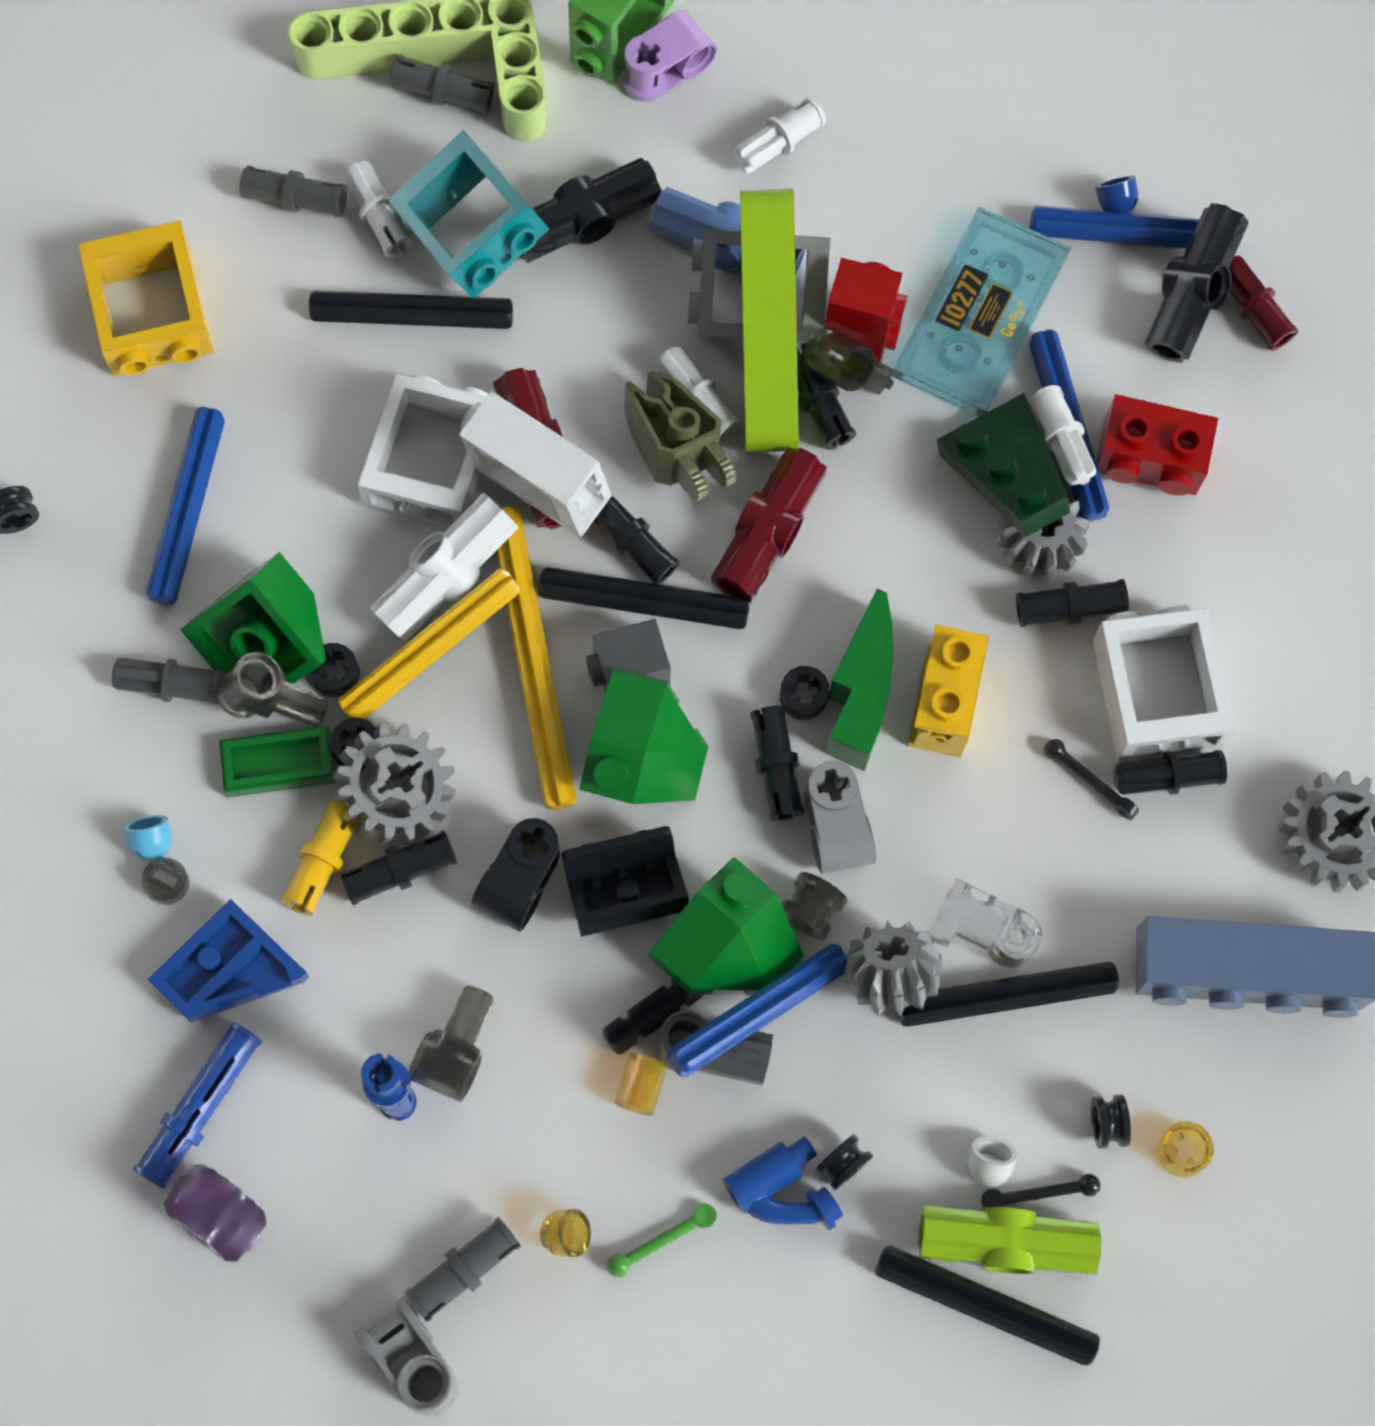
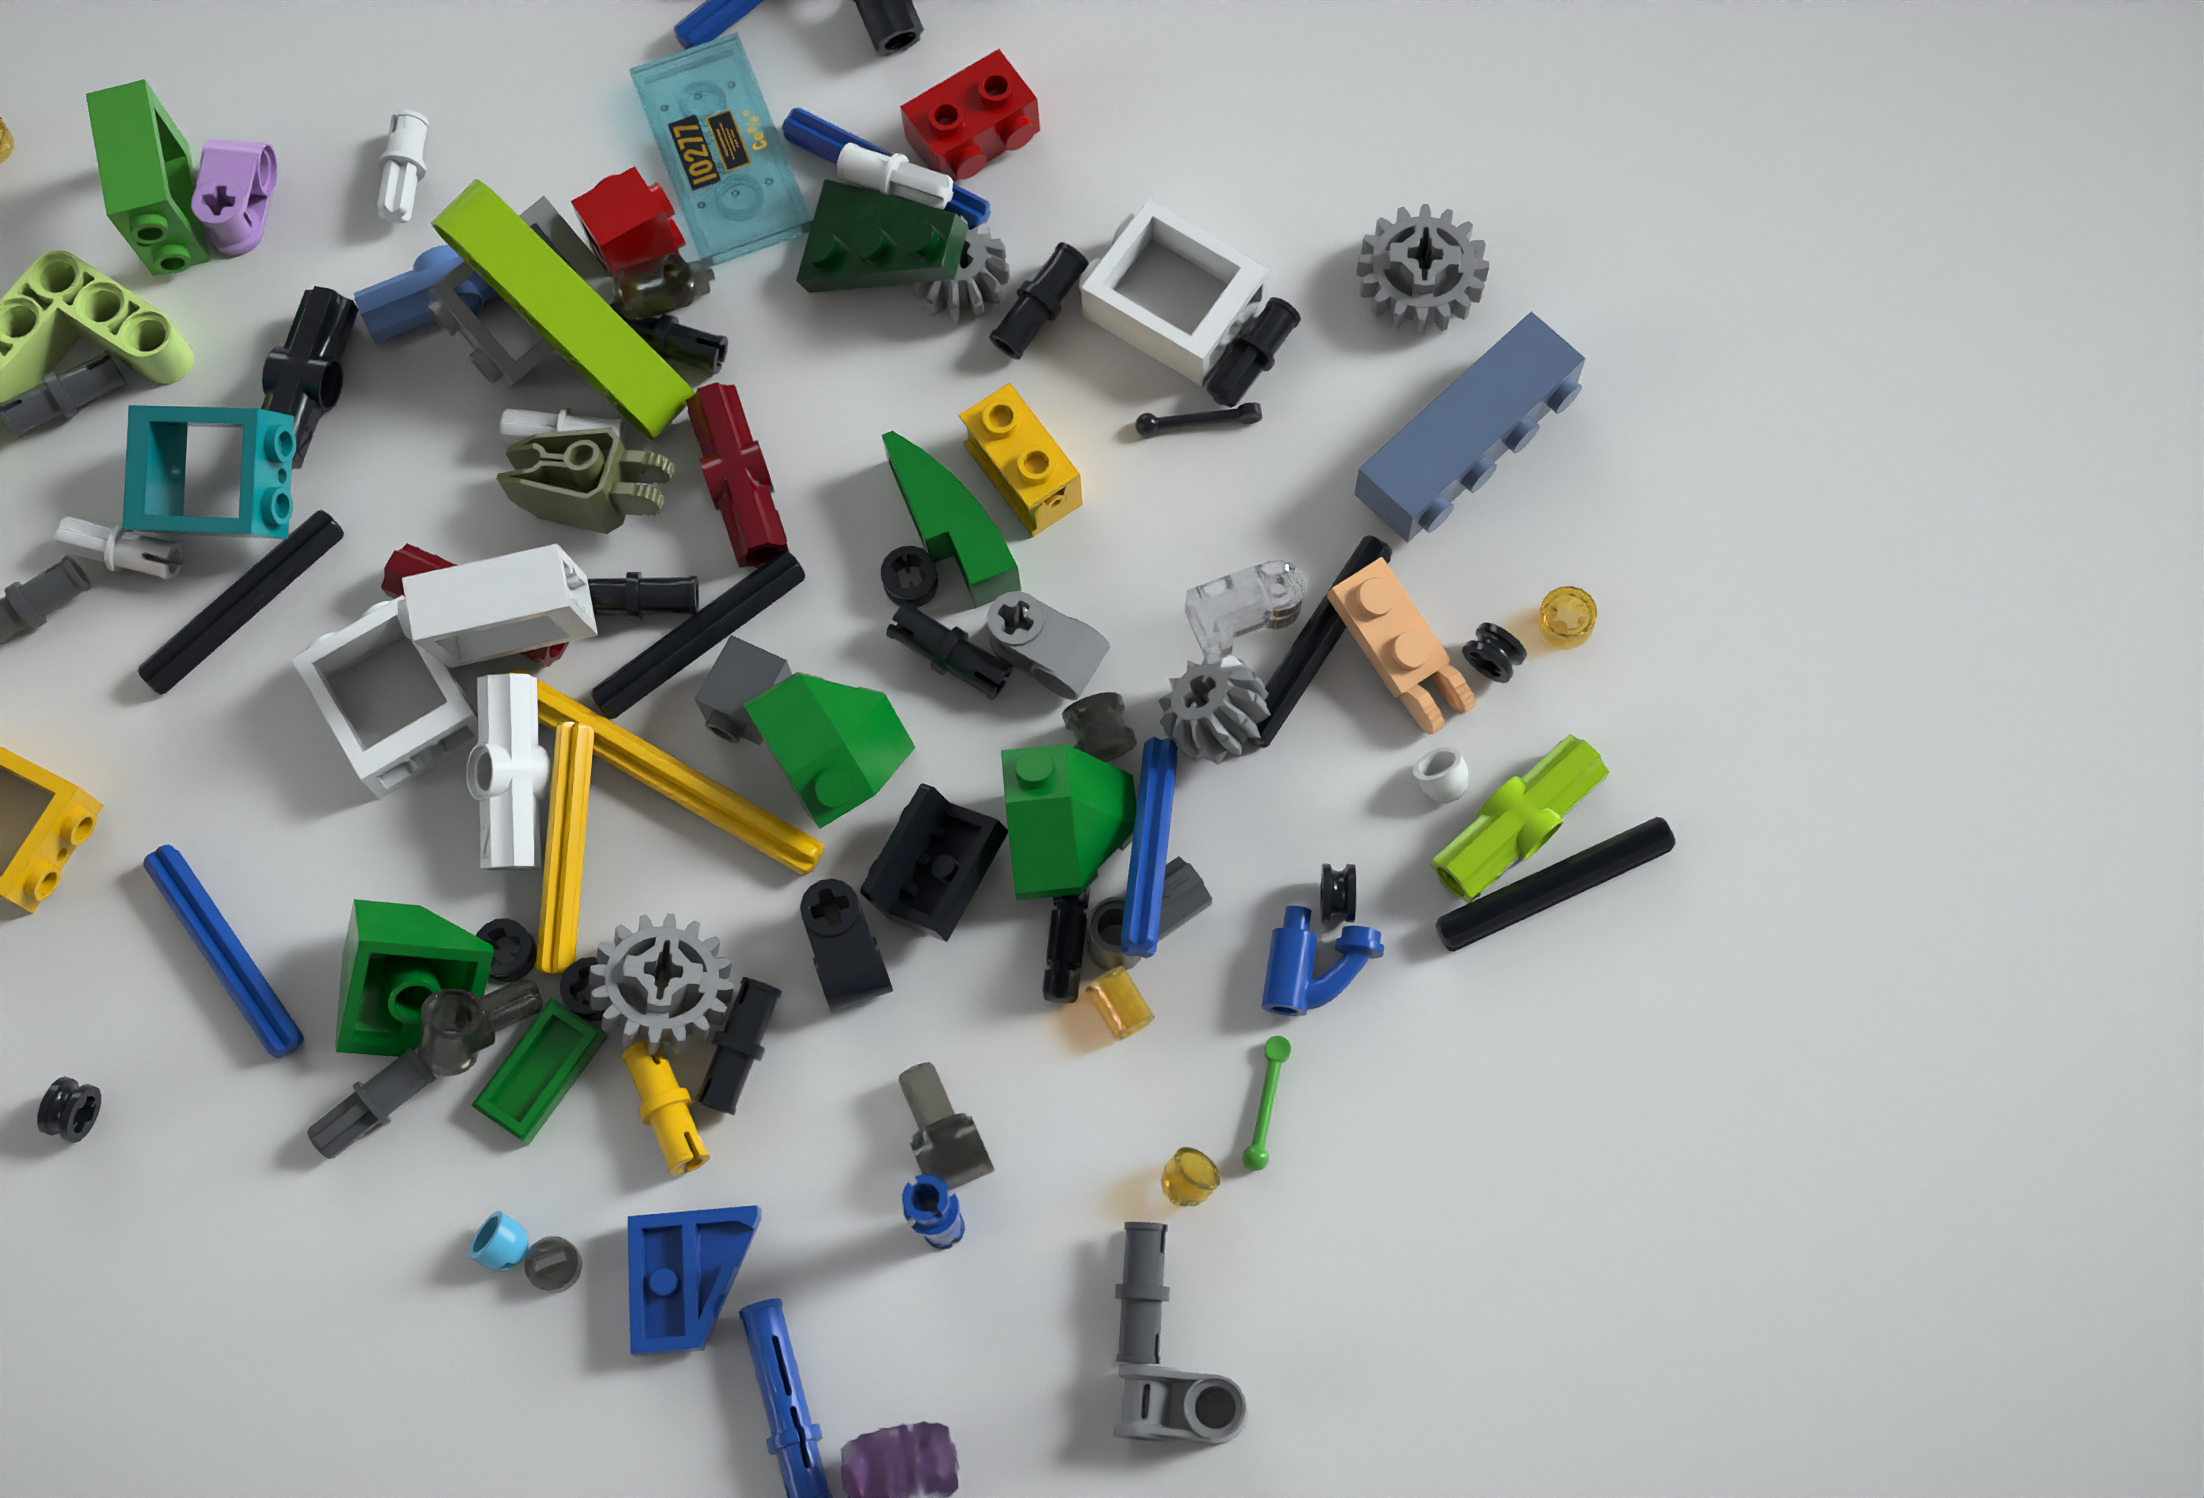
camera: 40 degrees left, 0 degrees up
(1056, 1050) = (1399, 643): none -> light nougat hinge
(1088, 1185) = (1528, 718): black hinge -> none

